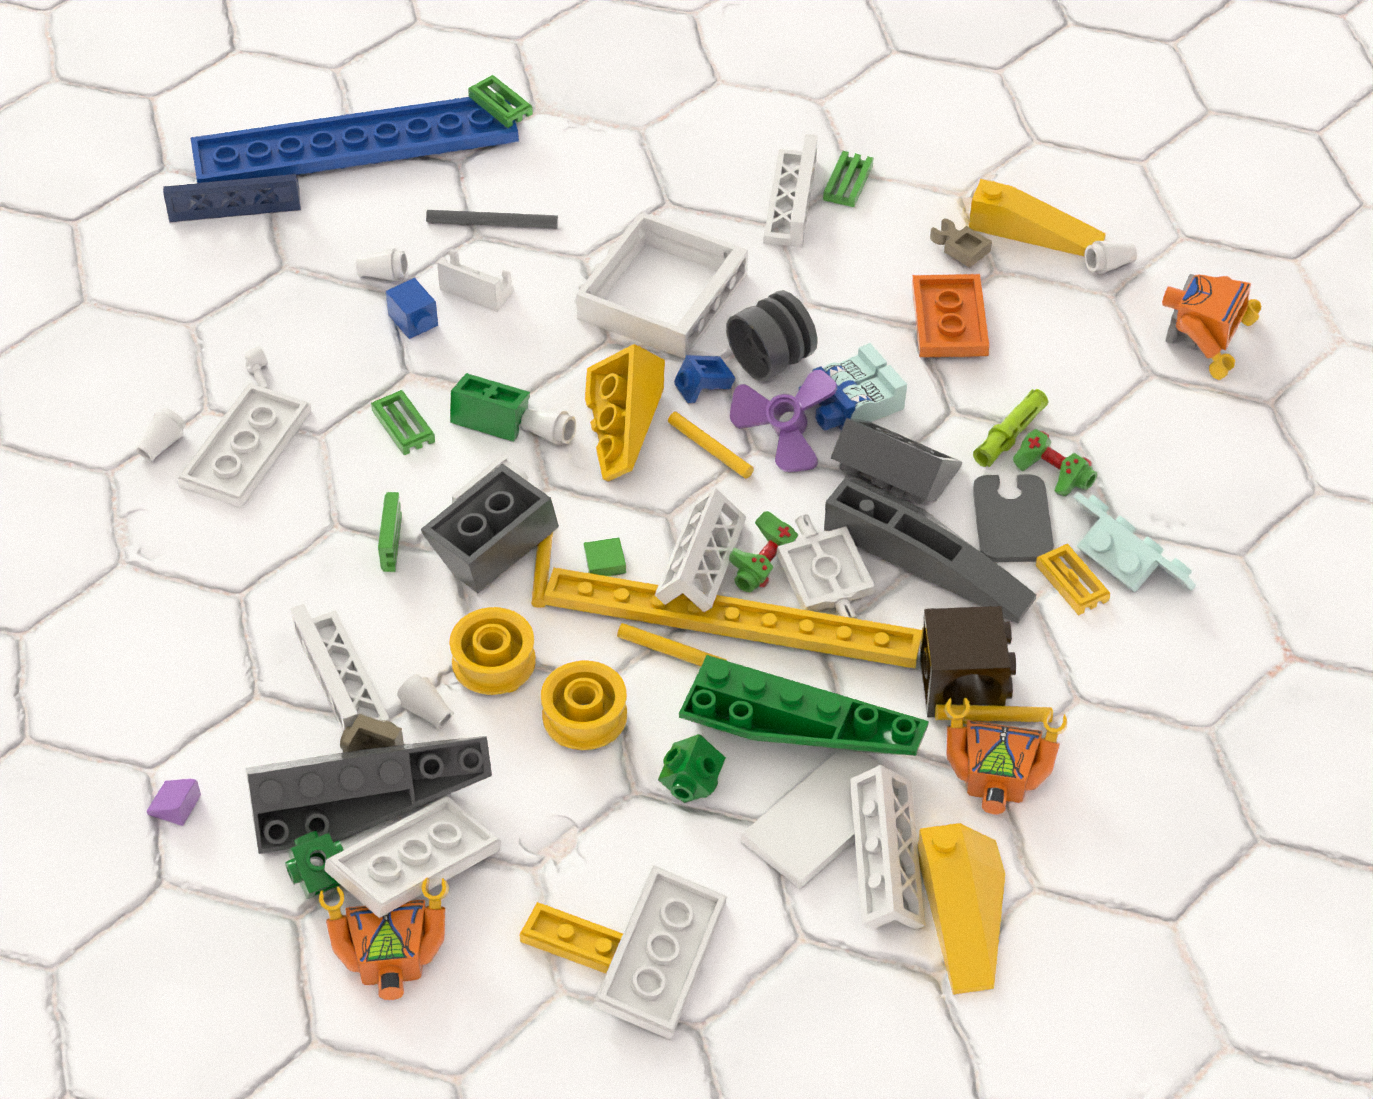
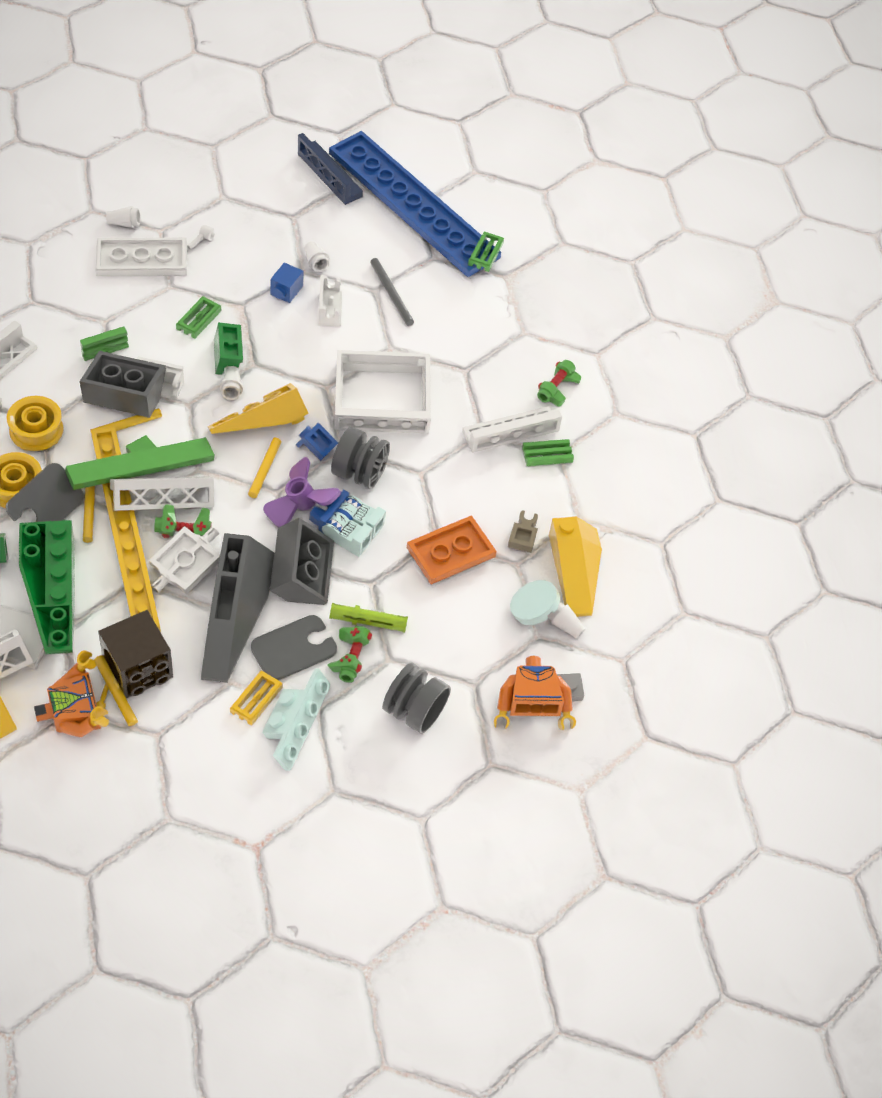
camera: 55 degrees right, 5 degrees up
(638, 561) = (139, 463): none -> bright green tile
(642, 679) = (47, 495): none -> dark grey piece
(755, 138) = (563, 372): none -> bright green piece
(1075, 268) = (535, 602): none -> light aqua tile
(1168, 416) = (416, 698): none -> dark grey wheel

